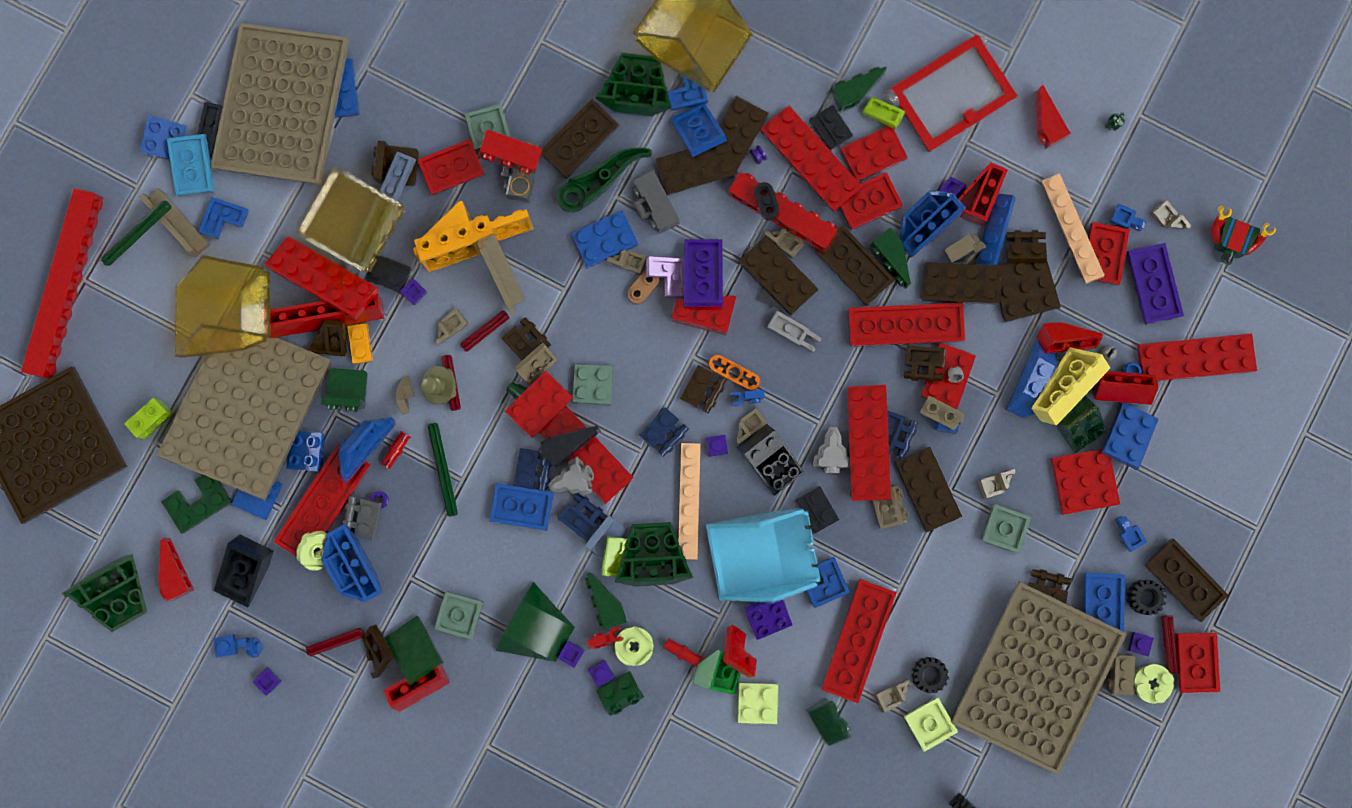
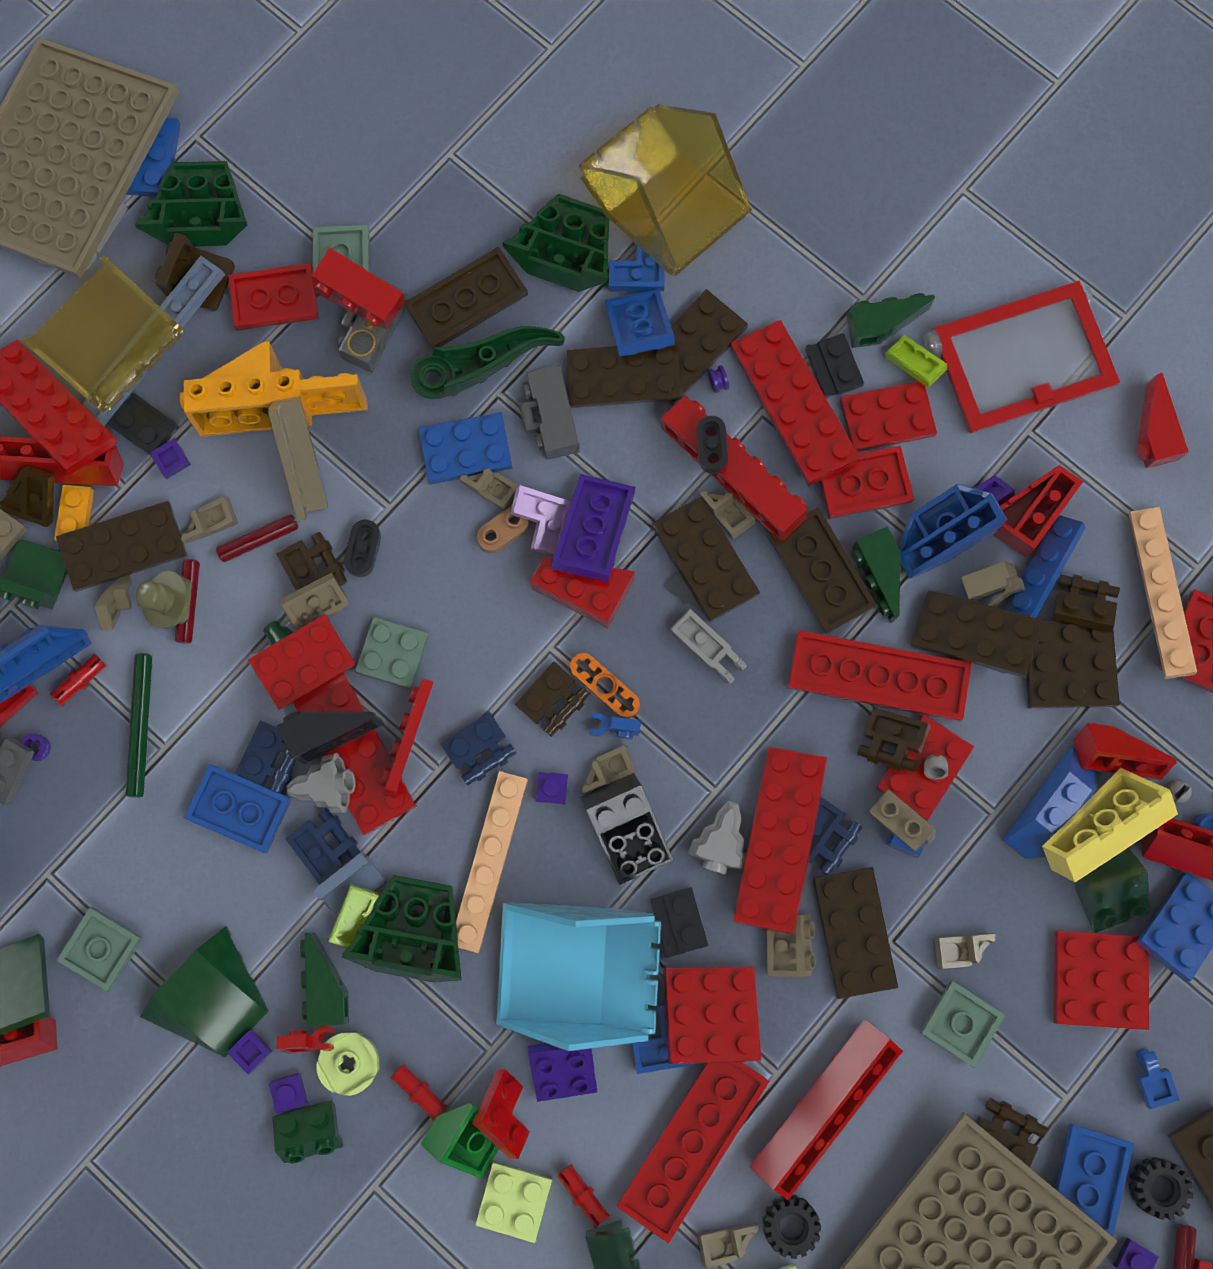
camera: 20 degrees right, 5 degrees down
(382, 116) = (197, 203): none -> dark green wedge
(398, 357) = (121, 546): none -> dark brown plate
(555, 321) = (362, 549): none -> black plate
(617, 443) = (401, 749): none -> red plate
(799, 689) = (583, 1196): none -> red pin
(851, 561) = (711, 1015): none -> red plate
(935, 599) = (826, 1109): none -> brick

